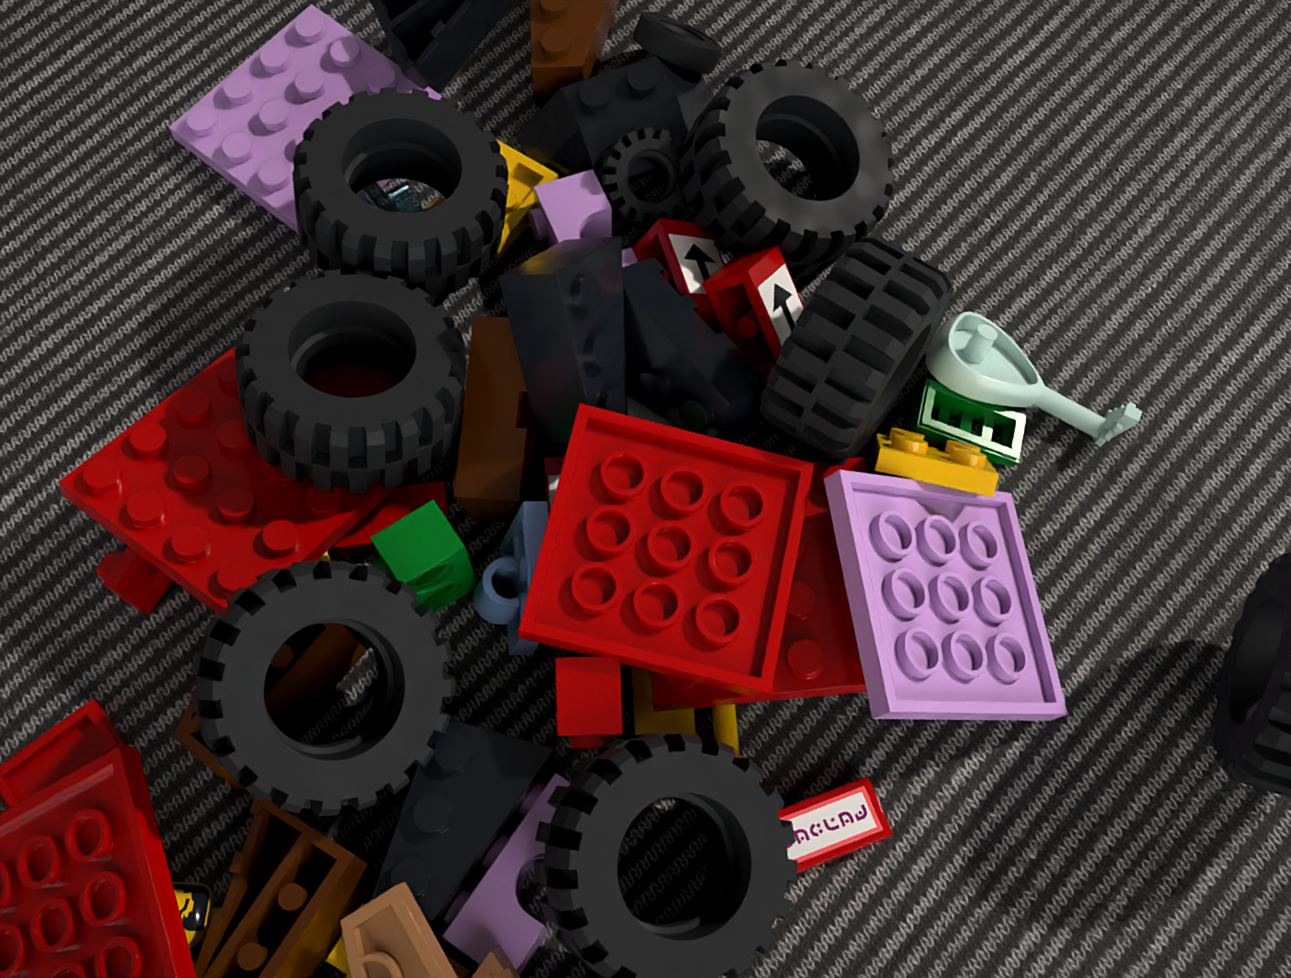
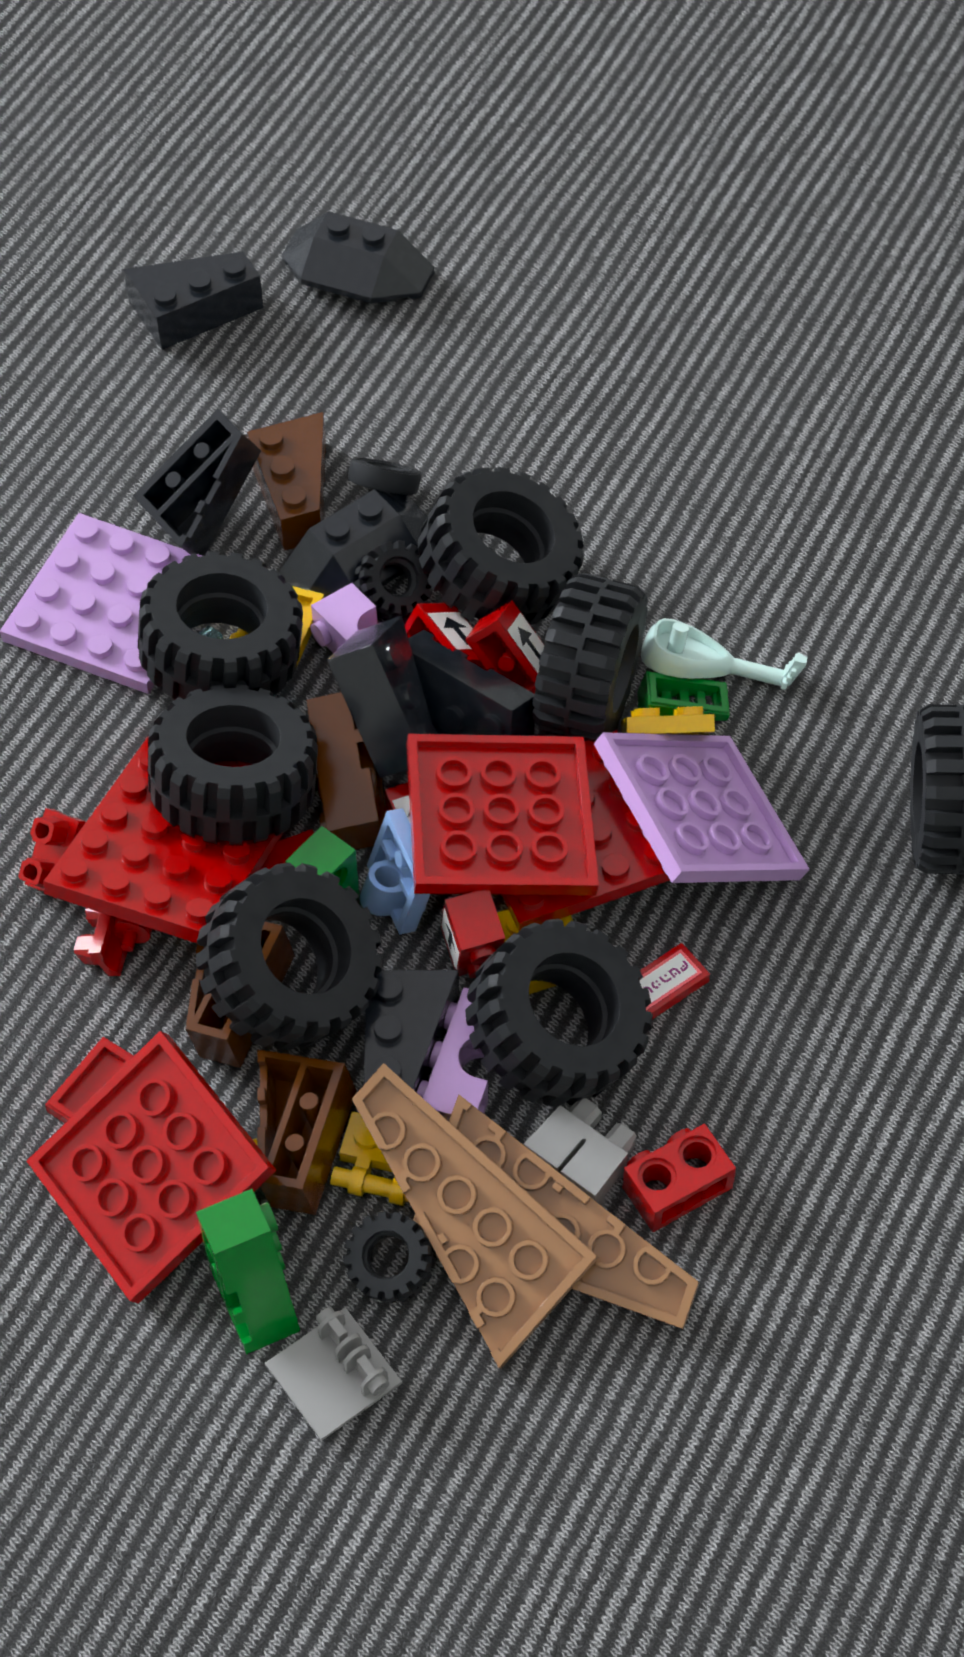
camera: 15 degrees left, 10 degrees down
(110, 413) = (52, 837): none -> red hips

